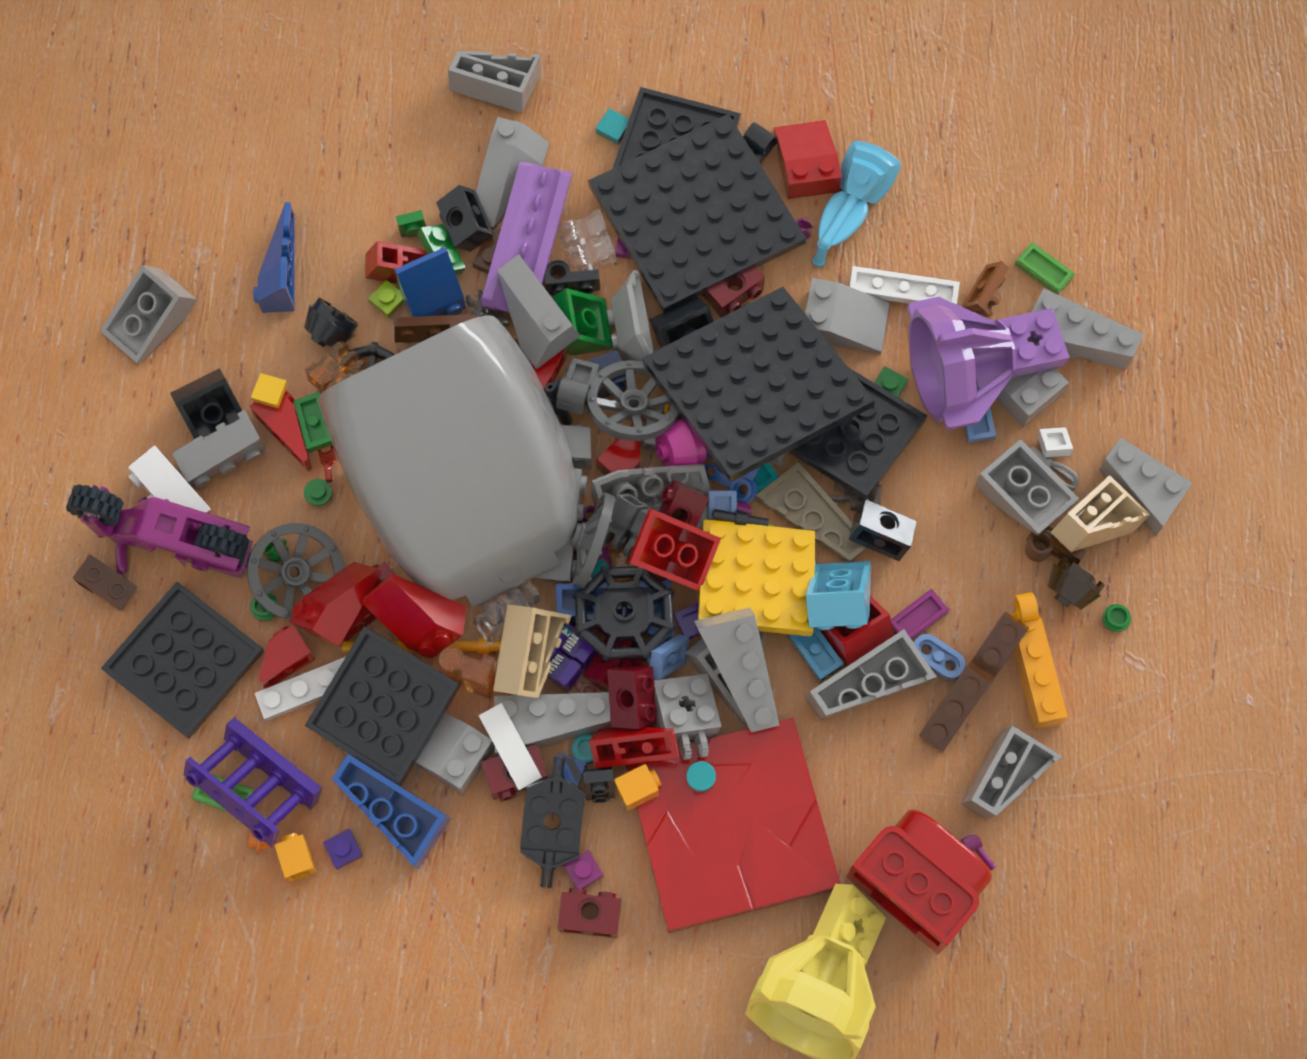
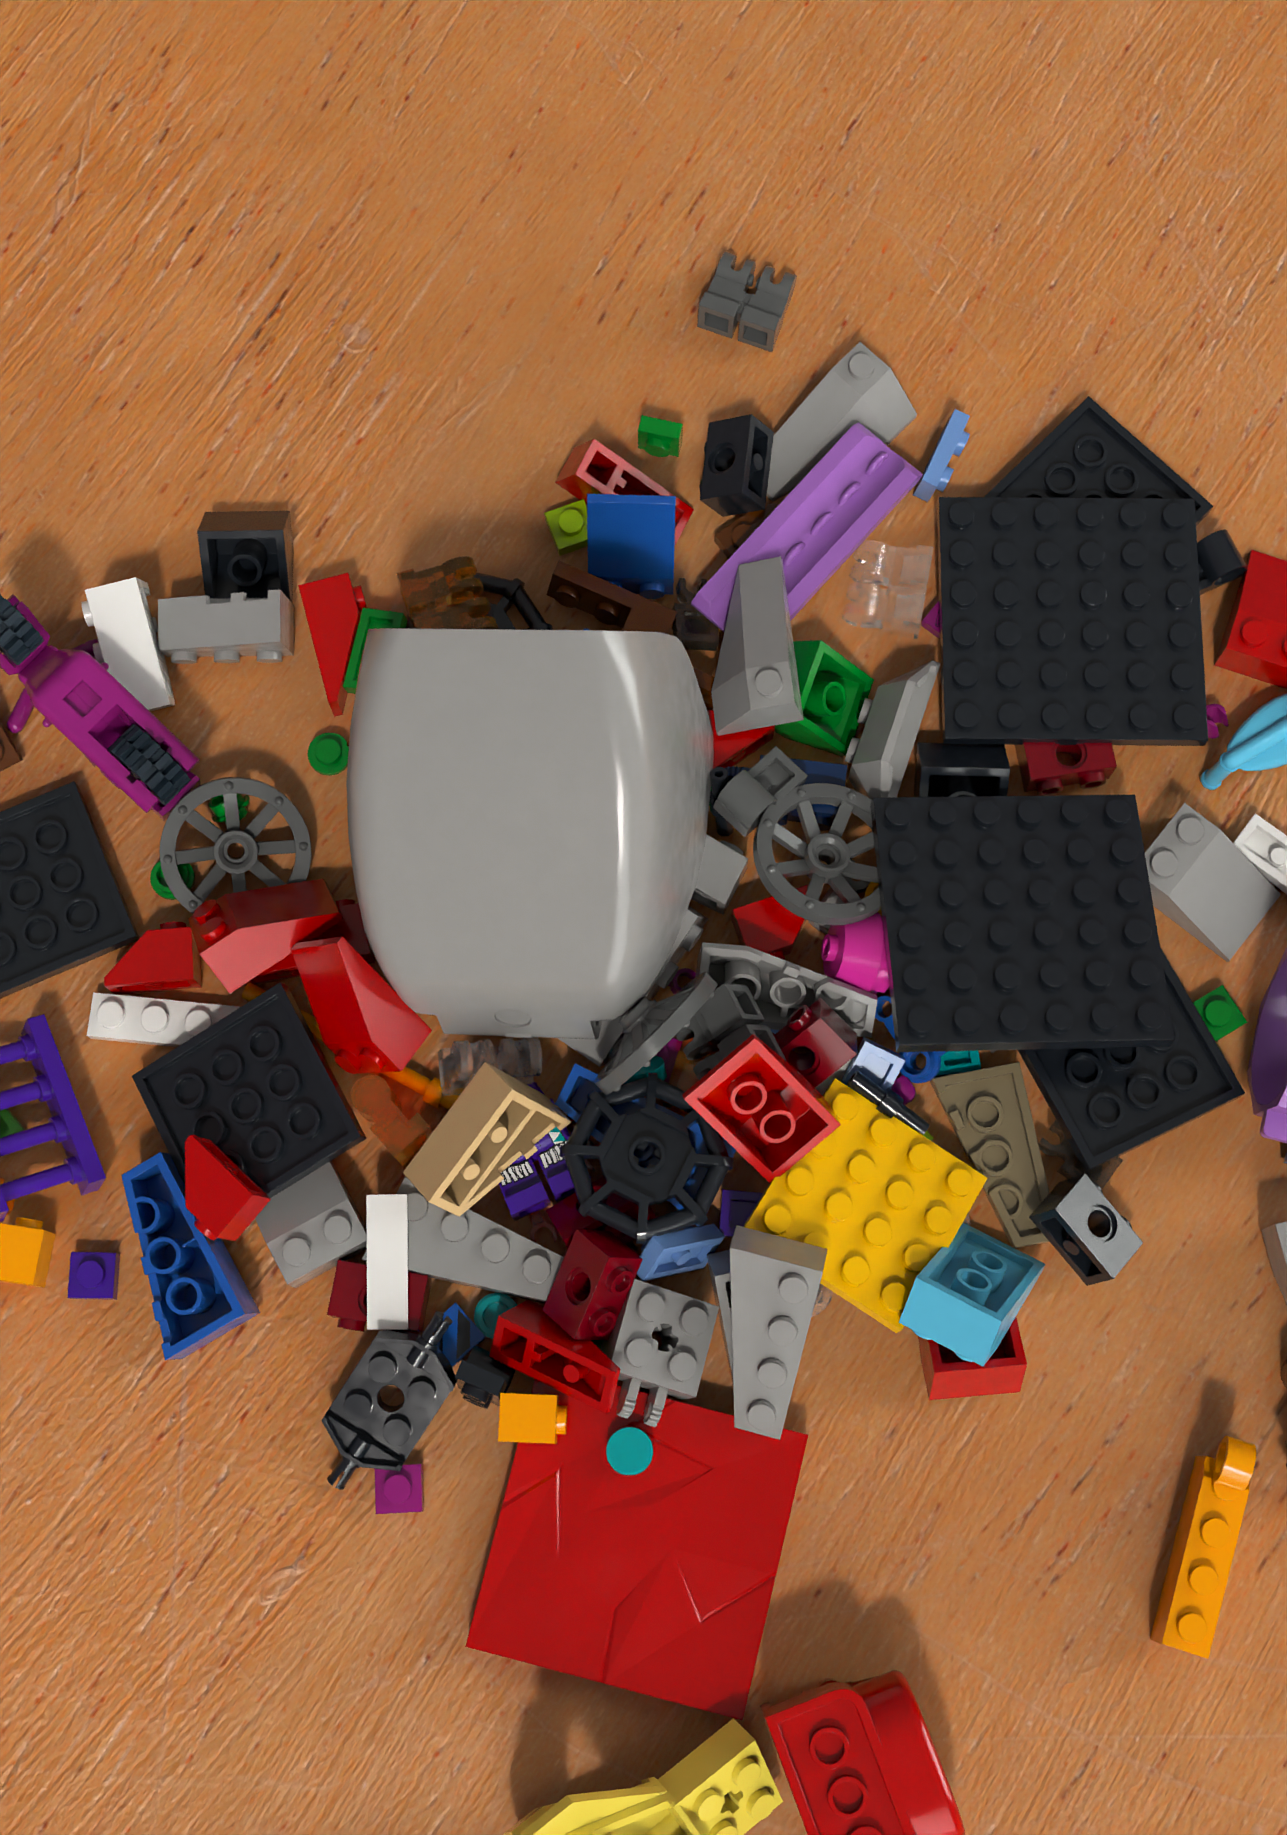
camera: 30 degrees right, 5 degrees up
(147, 313) = (238, 383): light grey slope -> none
(269, 390) = (335, 577): yellow tile -> none
(277, 273) = (441, 414): blue wedge -> none
(329, 324) = (468, 523): black cone -> none
(395, 756) = (219, 1191): none -> red slope
(409, 131) = (758, 315): none -> dark grey legs
(437, 237) = (682, 477): green plate -> none
(495, 79) = (888, 285): light grey wedge -> none
(577, 149) = (950, 442): none -> medium blue plate
(582, 281) = (852, 639): black plate -> none
(604, 925) = (344, 1551): dark red brick -> none
(612, 126) = (1018, 434): teal tile -> none
(817, 653) = (895, 1361): dark azure plate -> none
(878, 674) = (963, 1438): light grey wedge -> none
(920, 615) = (1071, 1381): magenta tile -> none
(940, 655) = (1068, 1457): medium blue plate -> none
(974, 681) = (1099, 1527): reddish brown bracket -> none
(974, 843) = (967, 1760): magenta hand -> none
(1007, 771) = (1074, 1689): light grey wedge -> none

